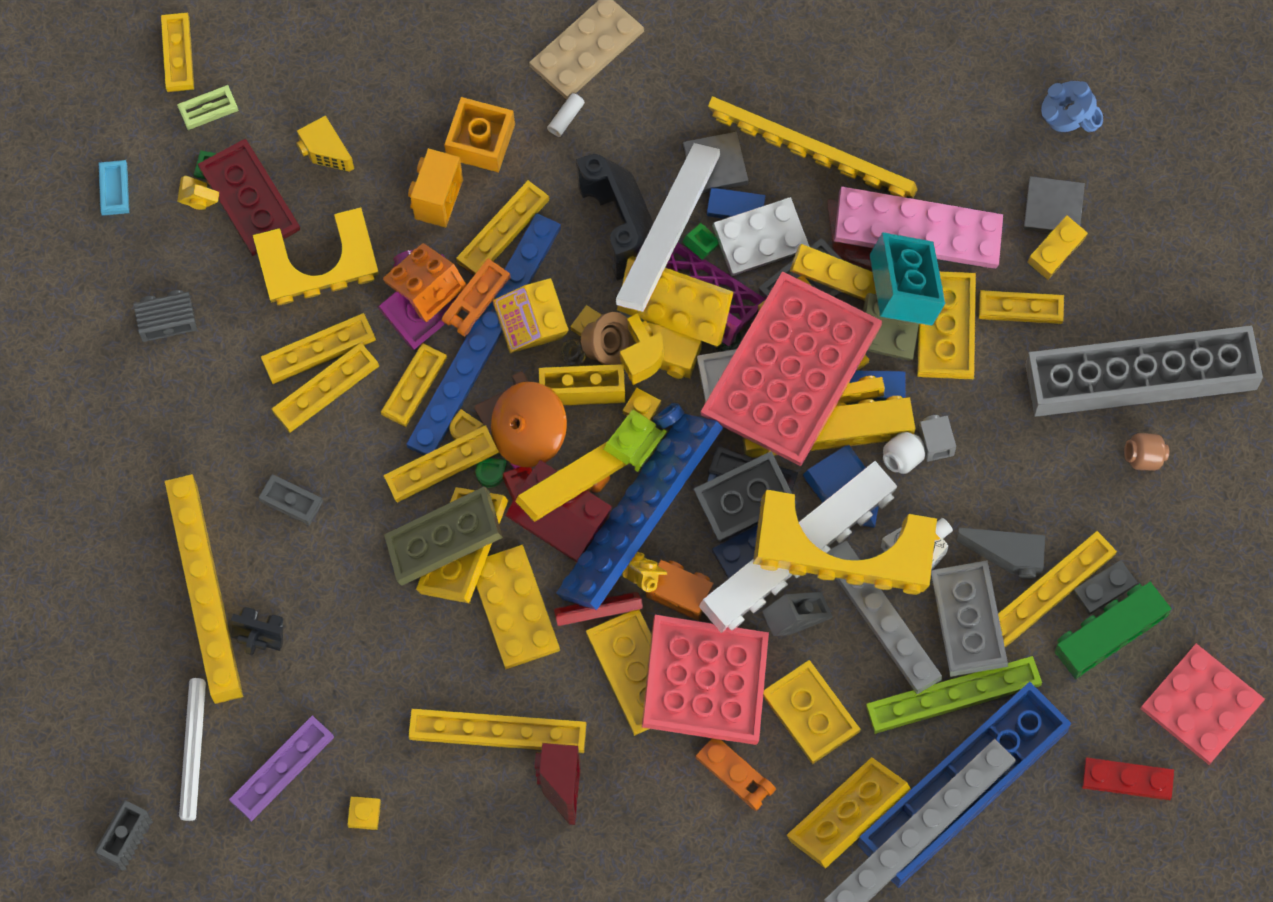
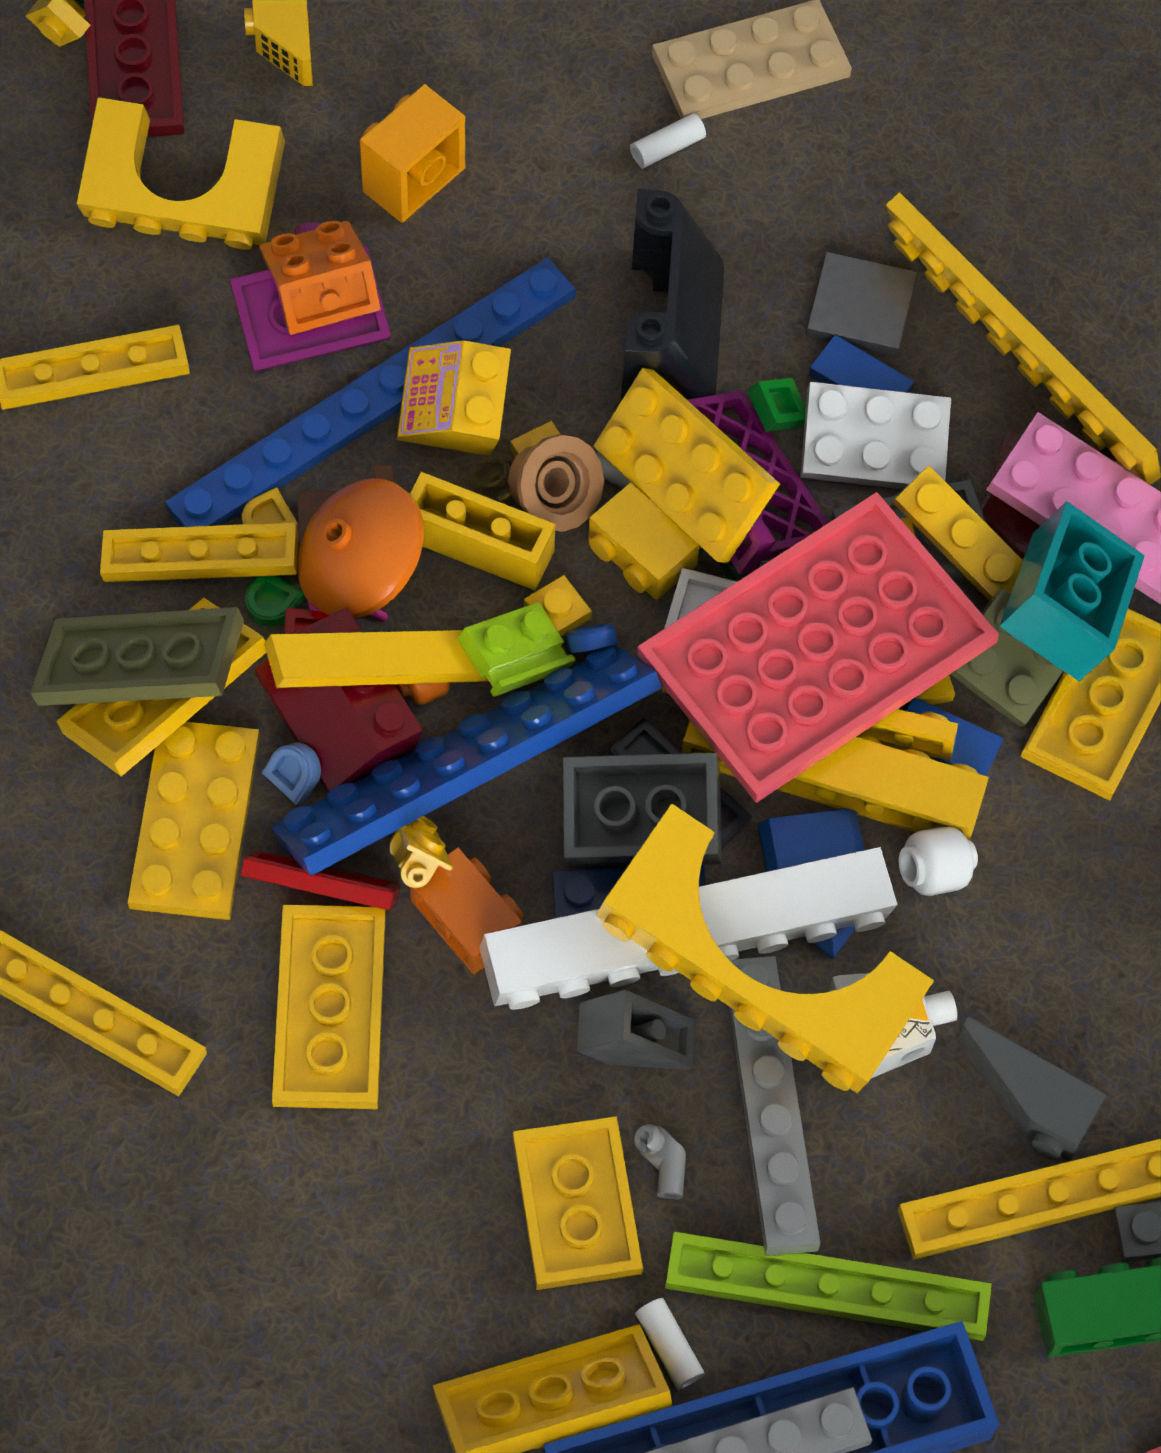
camera: 20 degrees right, 5 degrees down
(317, 348) = (111, 307): yellow plate -> none
(414, 384) = (226, 423): yellow tile -> none
(476, 296) = (386, 332): orange plate -> none
(480, 134) = (521, 108): light orange brick -> none
(503, 227) = (483, 258): yellow plate -> none
(553, 558) = (294, 771): none -> medium blue tile
(559, 775) = (109, 1111): dark red slope -> none
(646, 355) = (595, 526): yellow brick -> none
(667, 227) = (727, 352): white tile -> none
(705, 680) = (428, 1070): coral plate -> none
(735, 772) = (403, 1242): orange plate -> none
(842, 667) = (665, 1155): none -> light grey arm
(891, 759) = (670, 1343): none -> white axle
(937, 437) = (1003, 862): light grey brick -> none
(969, 618) = (913, 1173): light grey tile -> none

